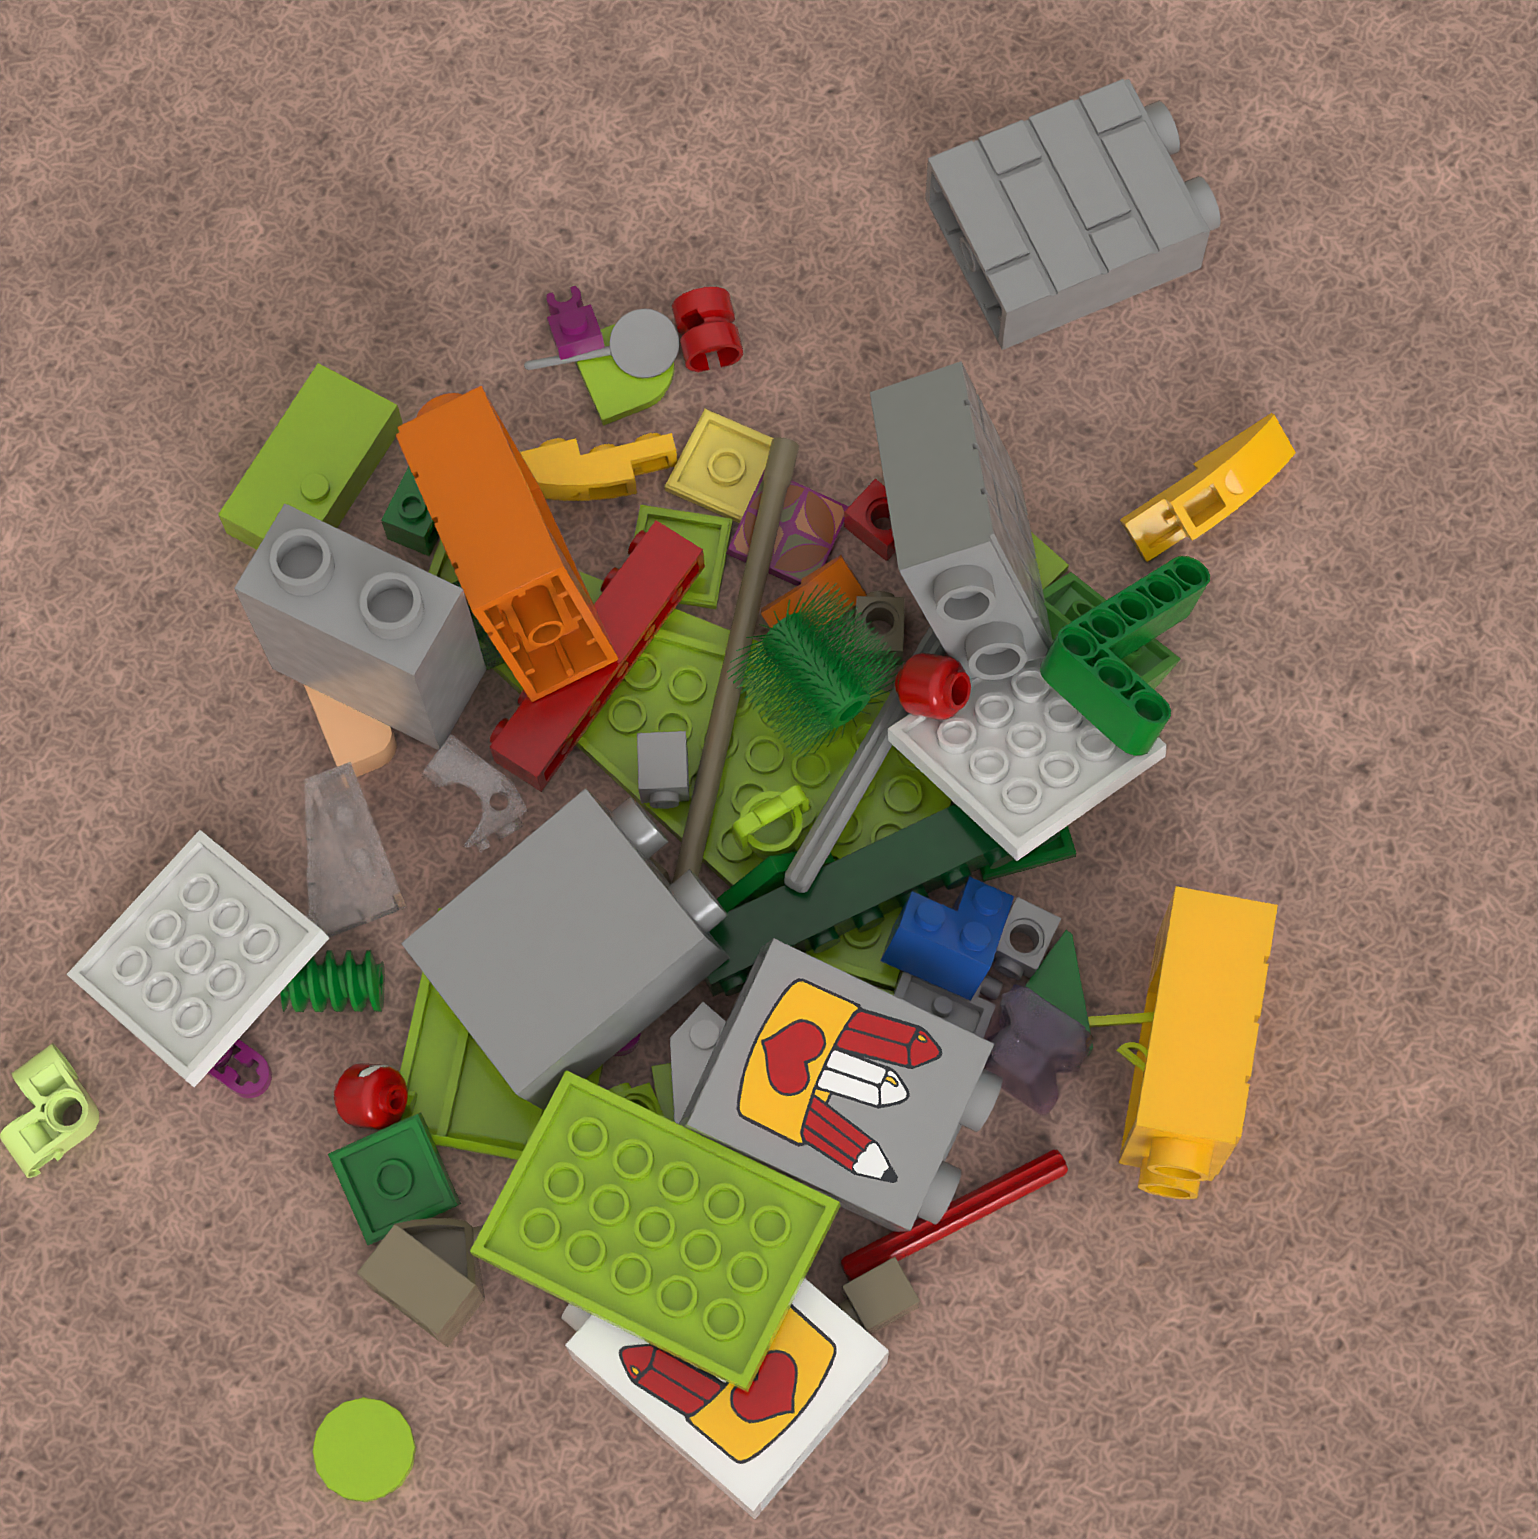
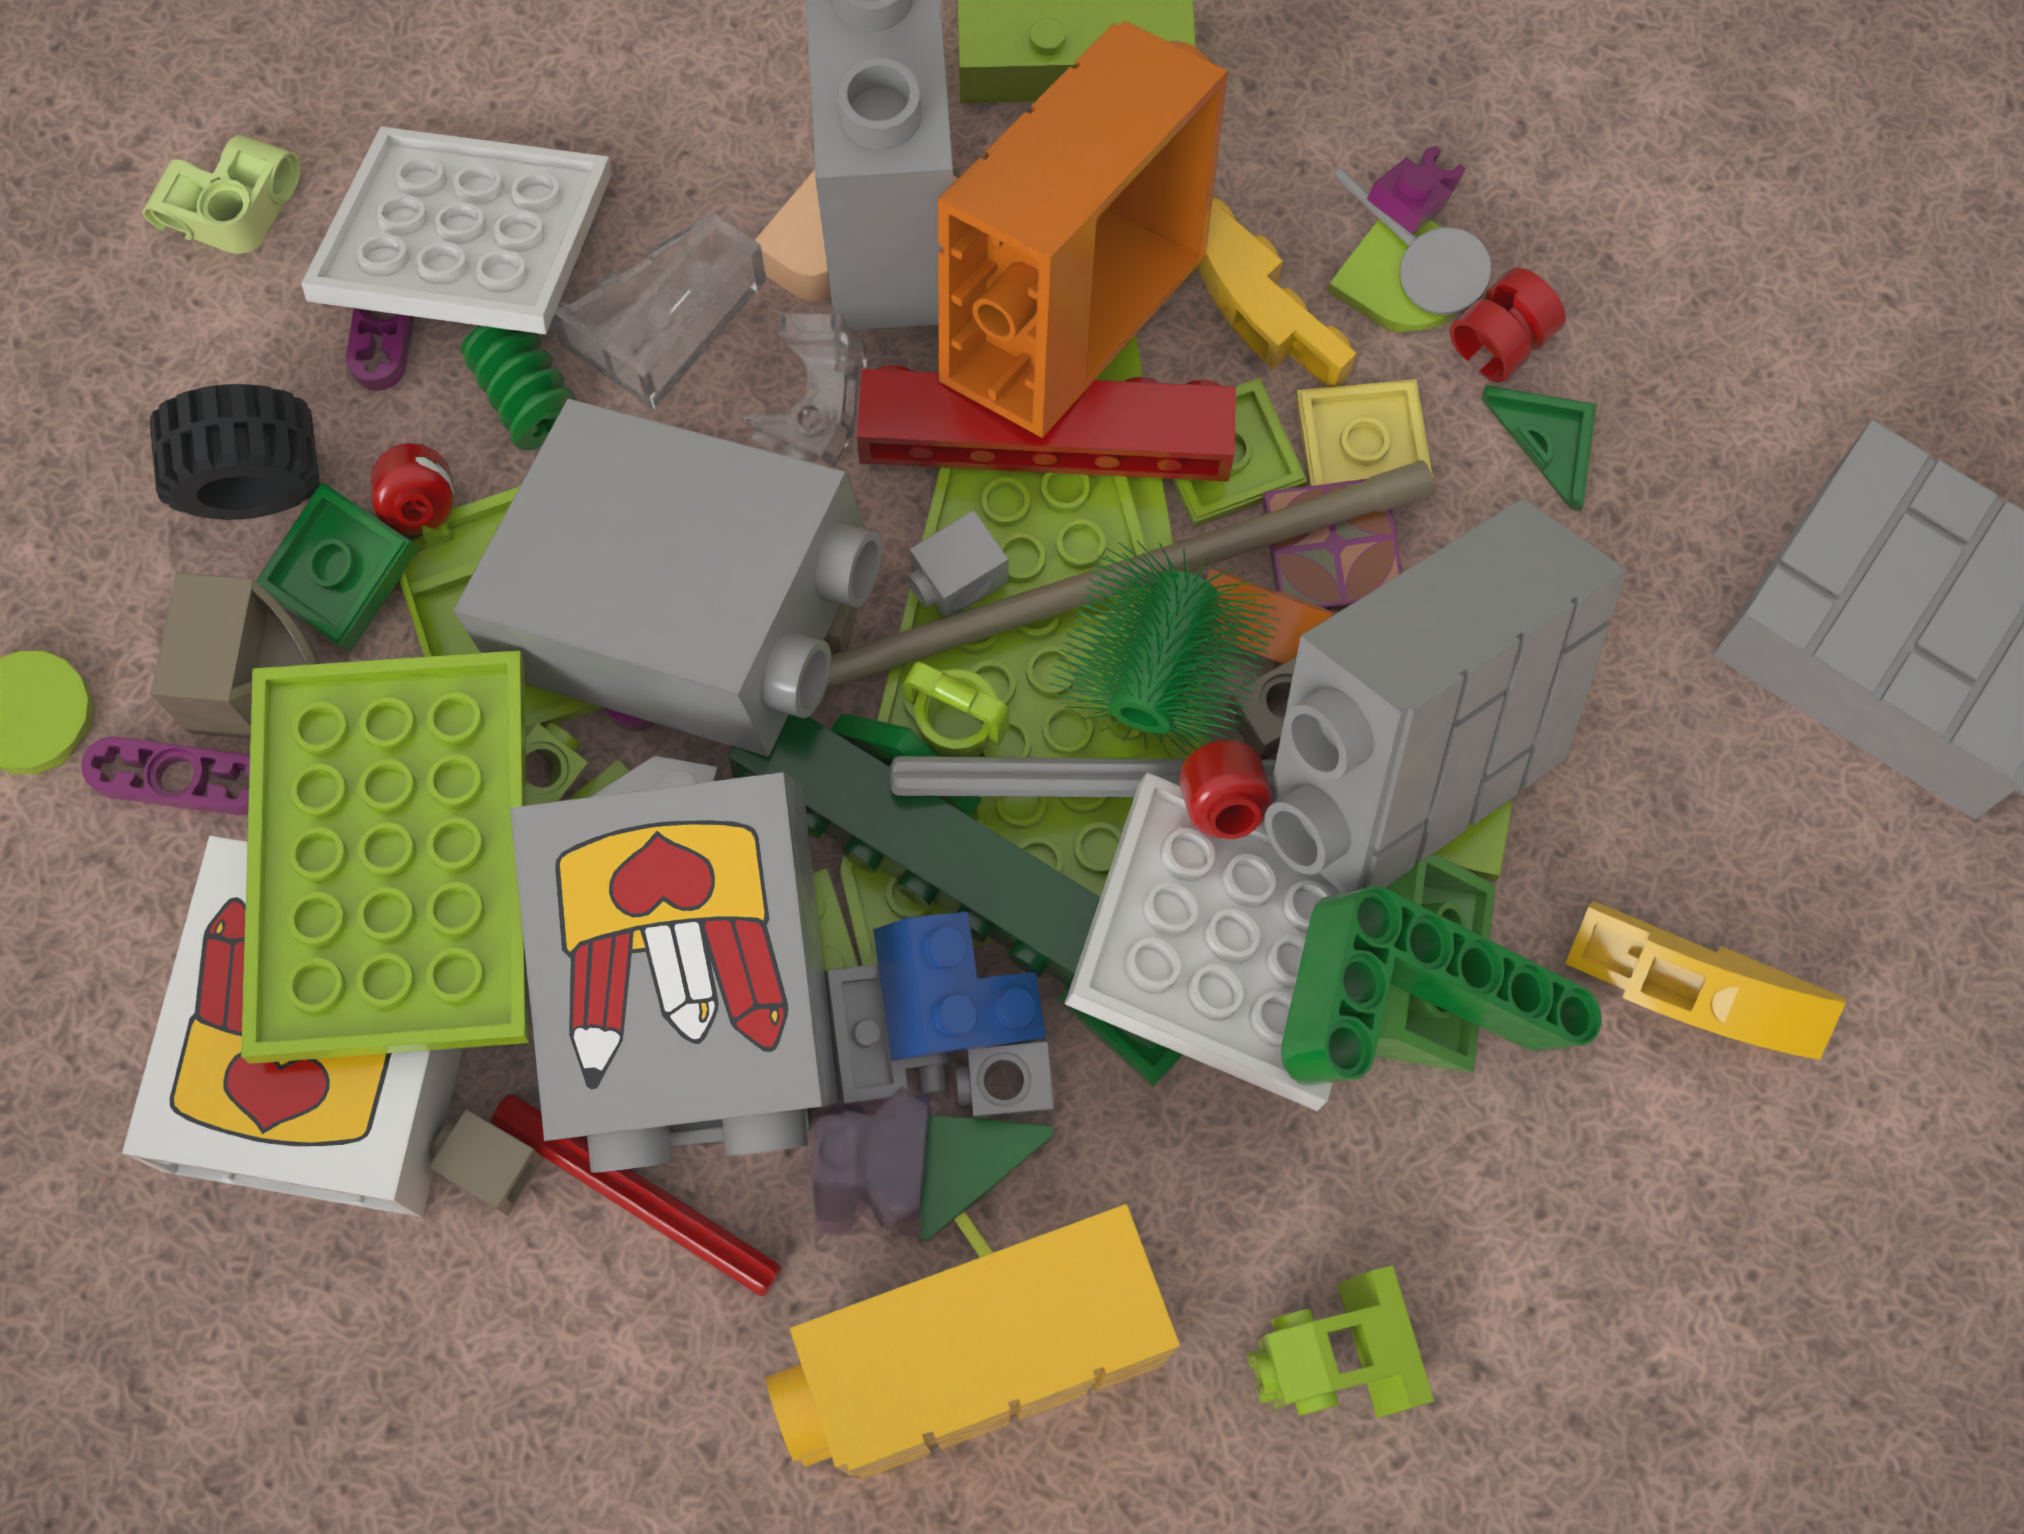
camera: 55 degrees right, 0 degrees up
(275, 1197) = (234, 451): none -> black tyre
(444, 1391) = (134, 752): none -> magenta beam
(795, 350) = (1551, 433): none -> green tile
(1304, 862) = (1300, 1367): none -> lime tile

